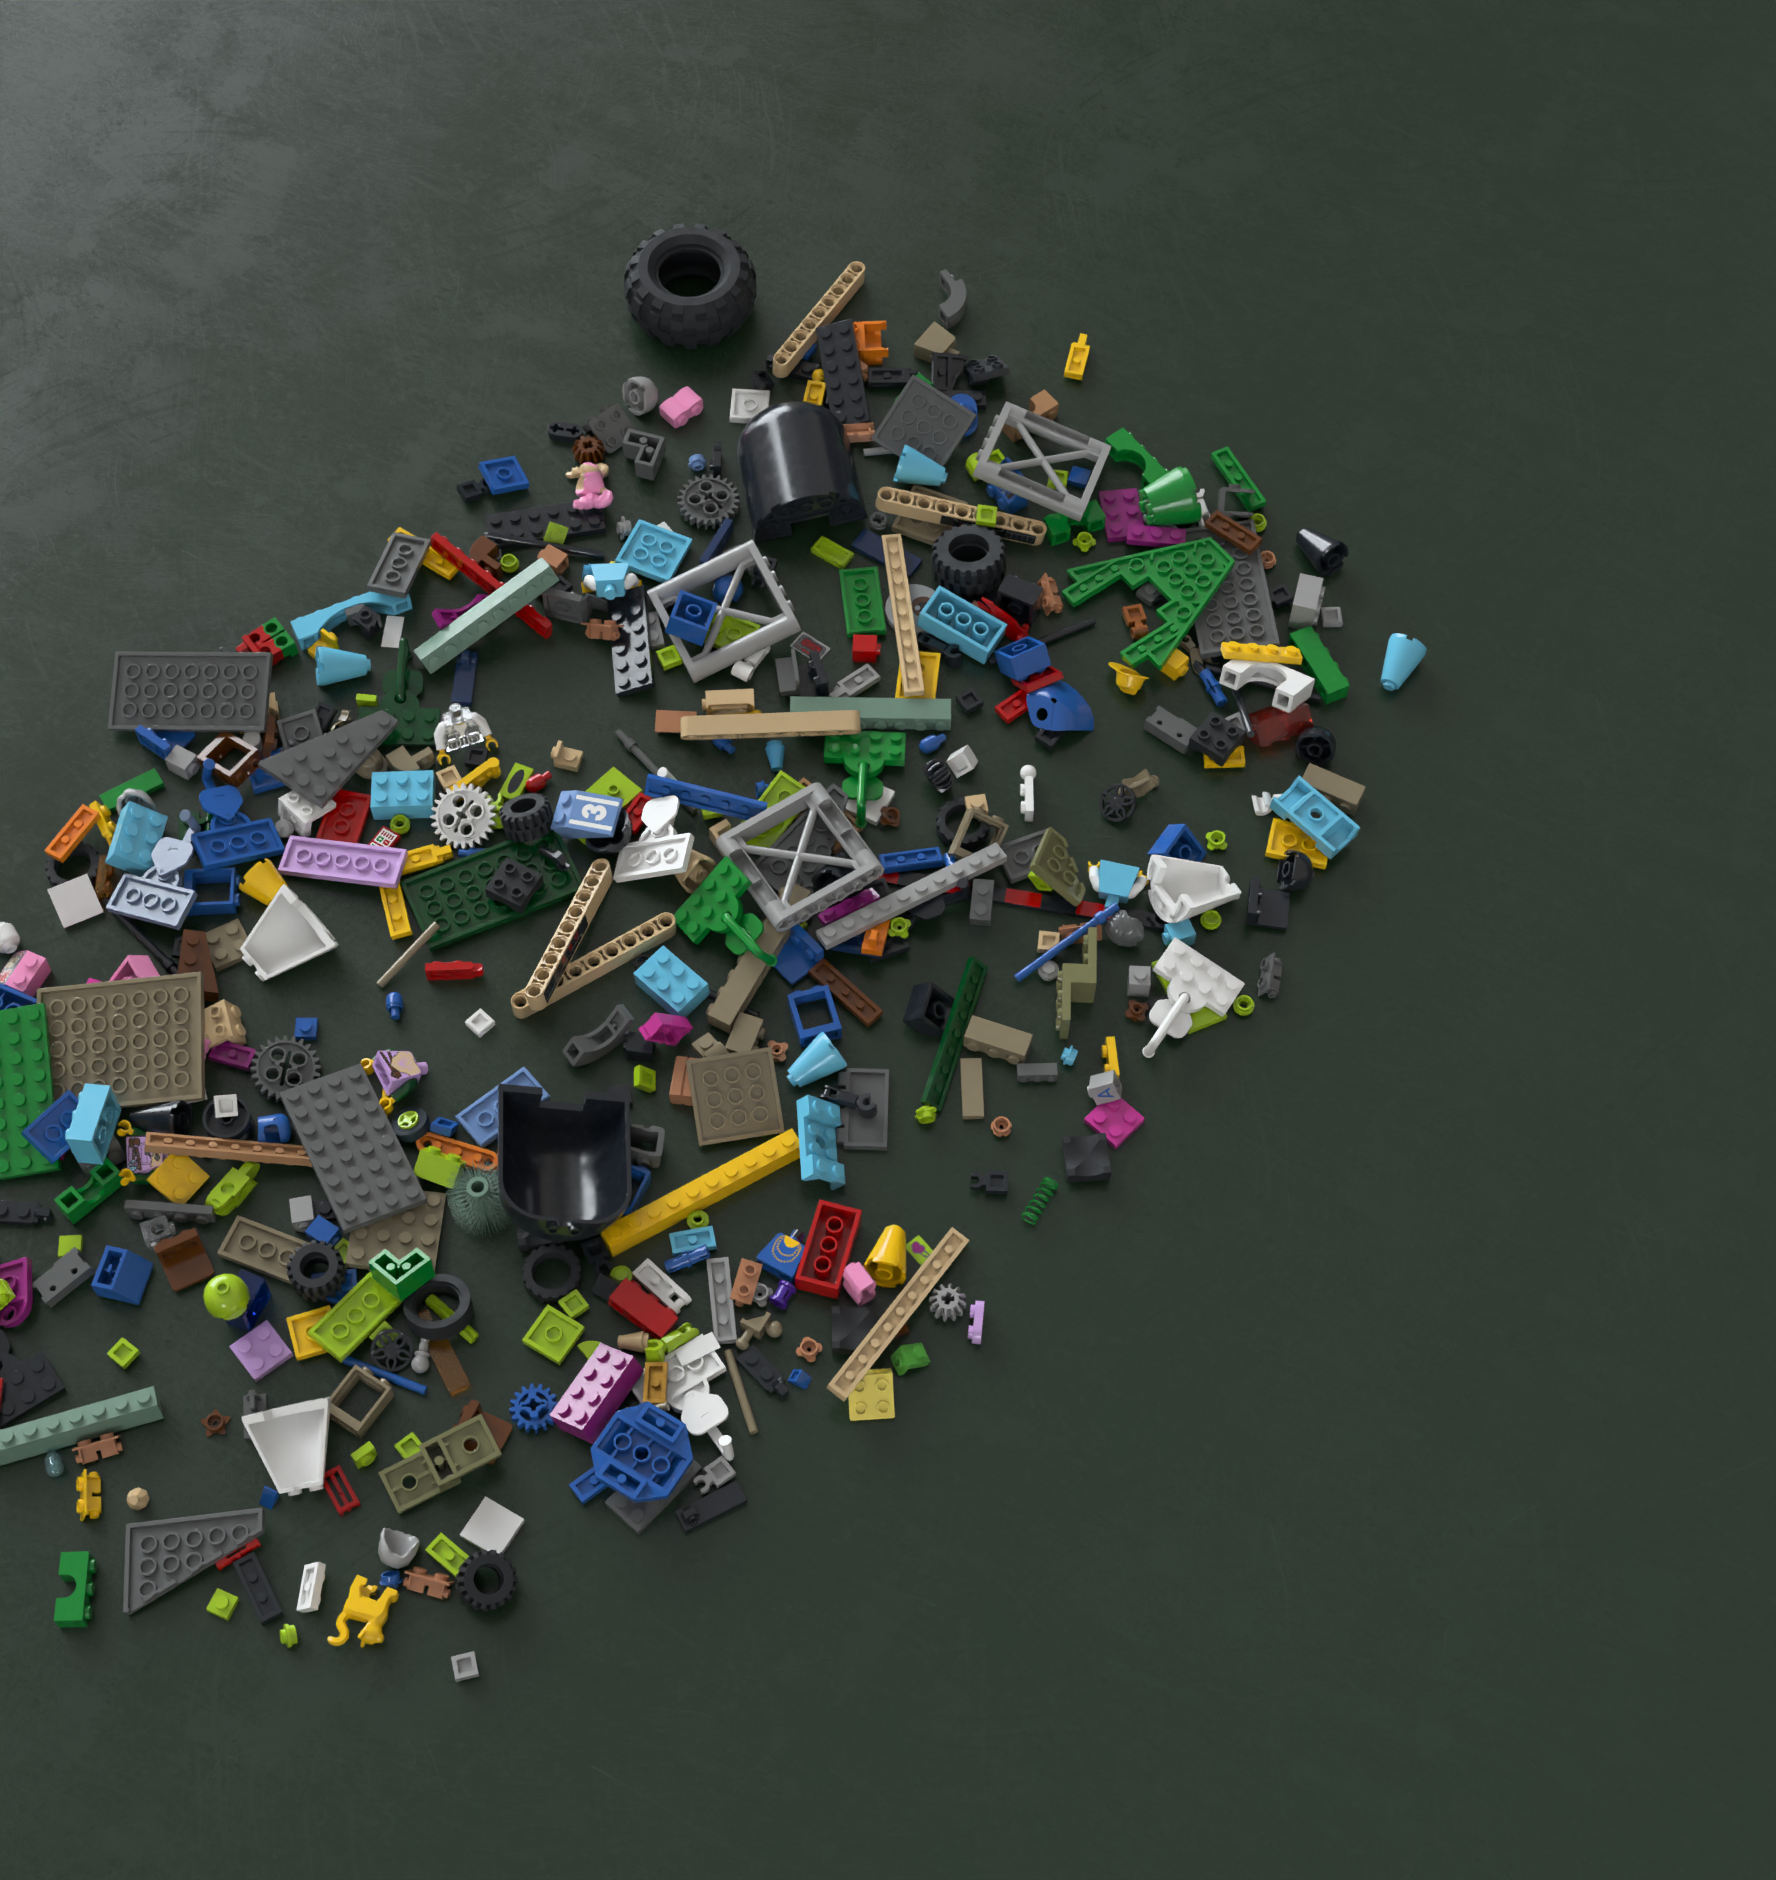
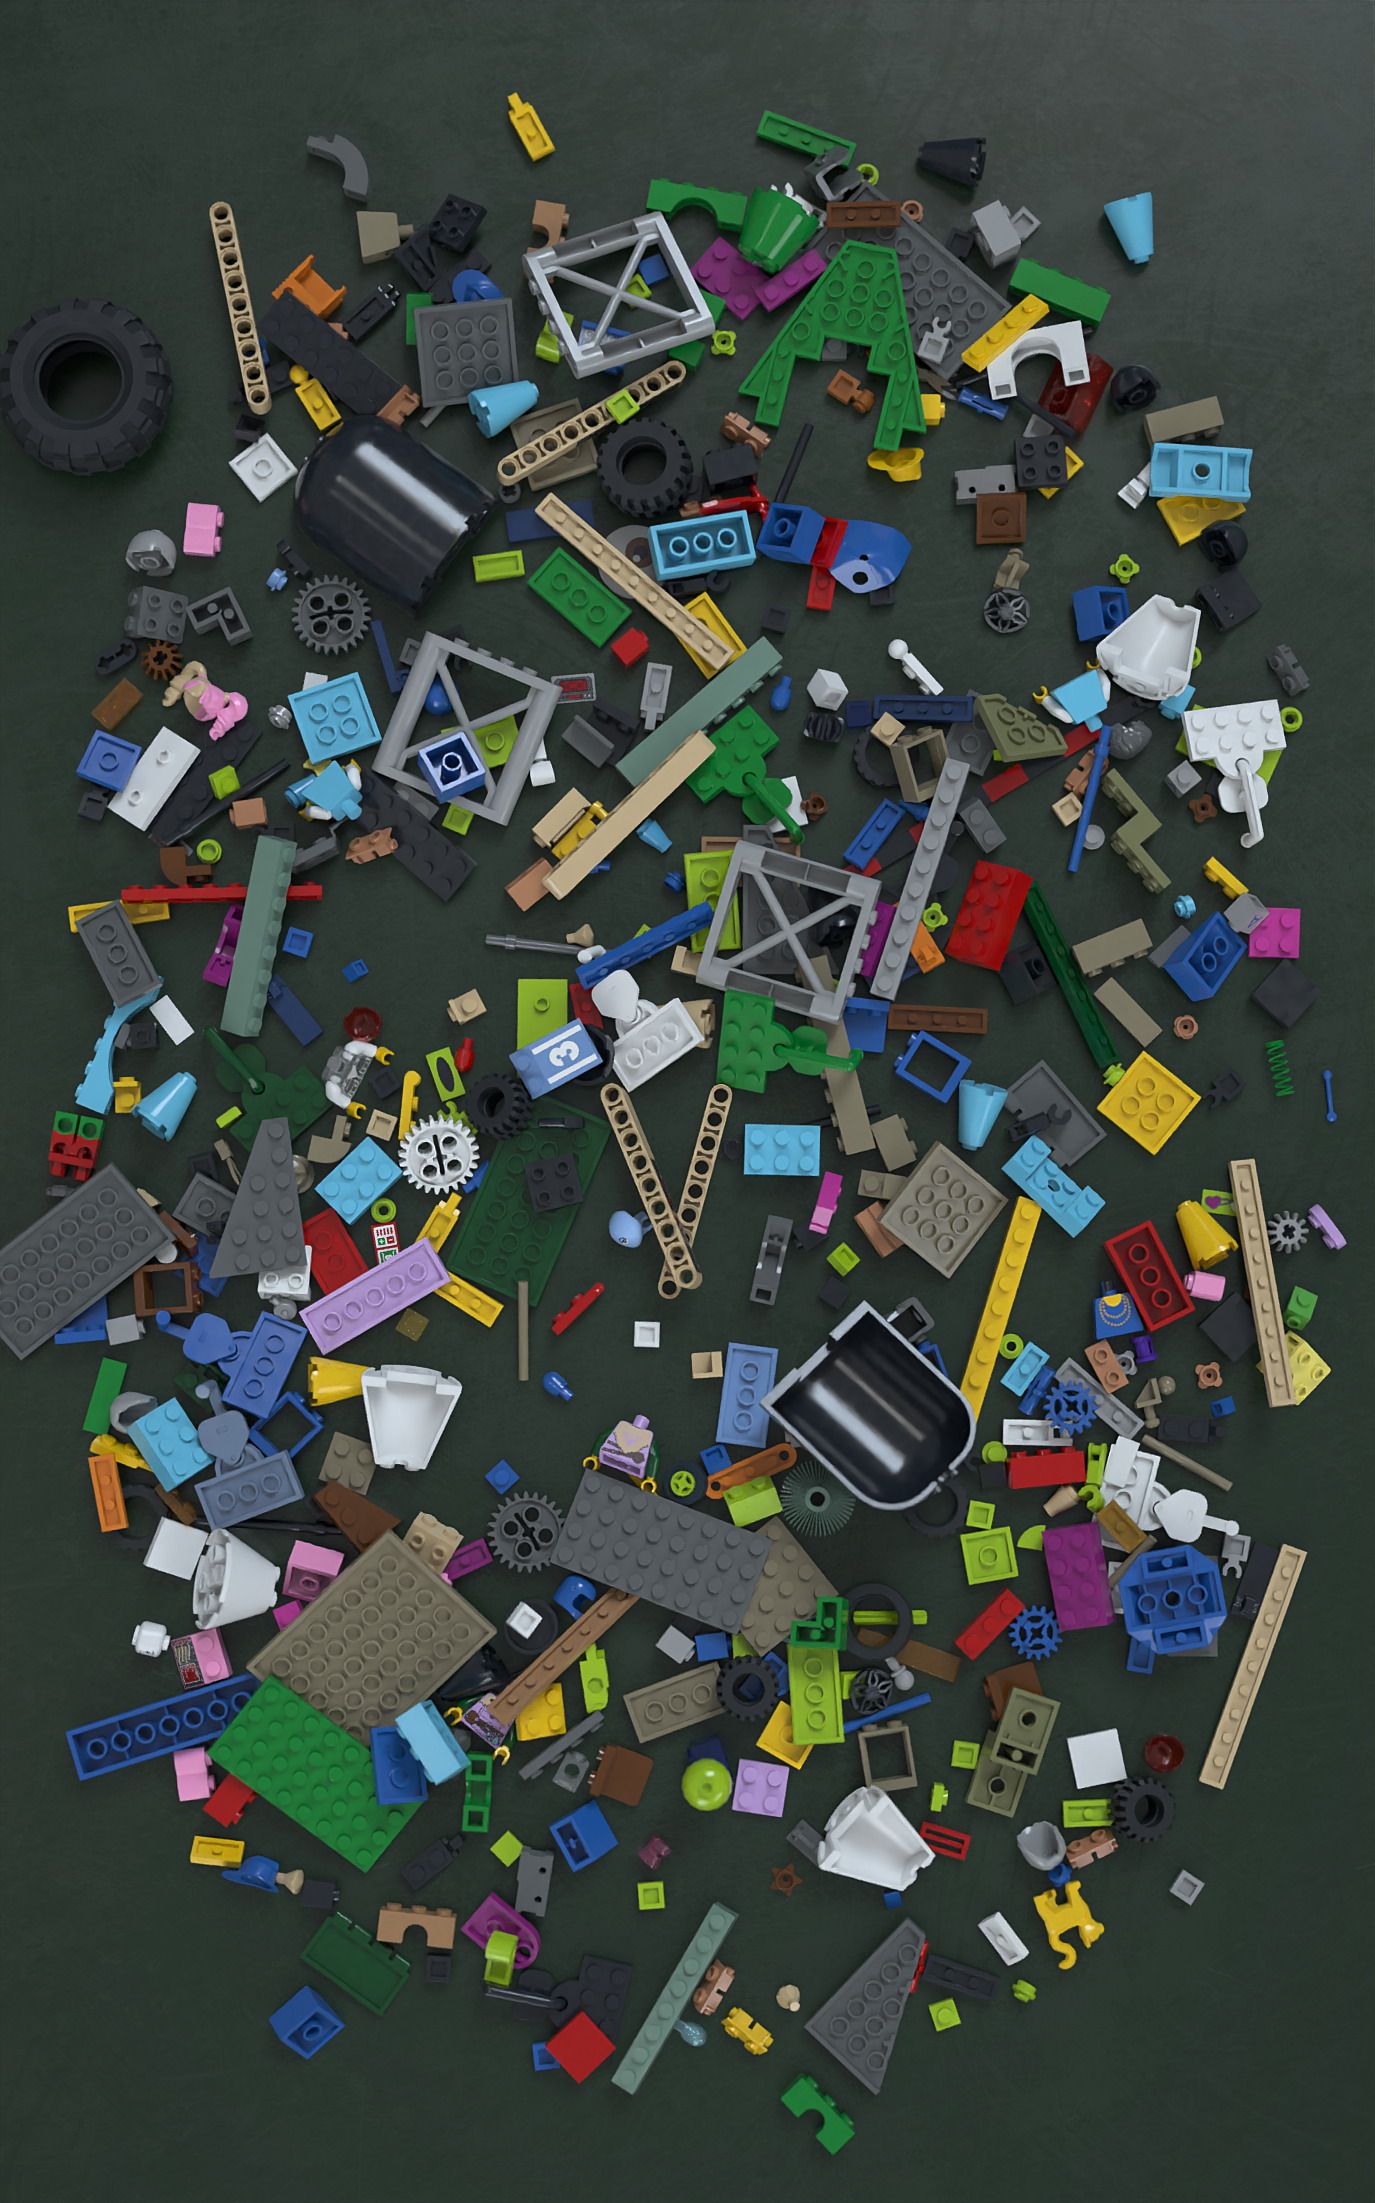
camera: 40 degrees left, 25 degrees up
(85, 940) = (232, 1582): none -> white cone
(154, 1327) = (654, 1851): none -> clear pink wheel
(347, 898) = (412, 1324): none -> clear yellow plate
(496, 716) = (363, 1024): none -> clear red hair
(497, 1070) = (707, 1364): none -> tan panel
(507, 646) = (298, 942): none -> blue plate
(508, 1374) = (989, 1623): none -> red brick
(518, 502) = (154, 778): none -> white plate
(524, 689) = (355, 970): none -> blue piece
(529, 950) = (628, 1229): none -> light blue piece
(538, 1561) = (1164, 1753): none -> clear red hair
(539, 453) = (117, 704): none -> clear orange plate
(653, 1560) = (1252, 1666): none -> tan plate
(679, 773) = (583, 936): none -> tan rock
(686, 1286) = (1077, 1414): none -> blue gear
(782, 1047) = (931, 1121): nougat plate -> none
(932, 1150) = (1148, 1103): none -> yellow plate
(935, 954) = (988, 915): none -> red brick
(967, 787) = (858, 714): none -> clear blue plate
(1013, 815) = (925, 708): none -> dark blue plate
(1047, 1260) = (1331, 1116): none -> blue hinge
(1053, 1092) = (1205, 958): none -> blue slope
(1163, 750) = (1000, 517): none -> reddish brown plate
(1211, 627) = (934, 344): none -> light grey plate

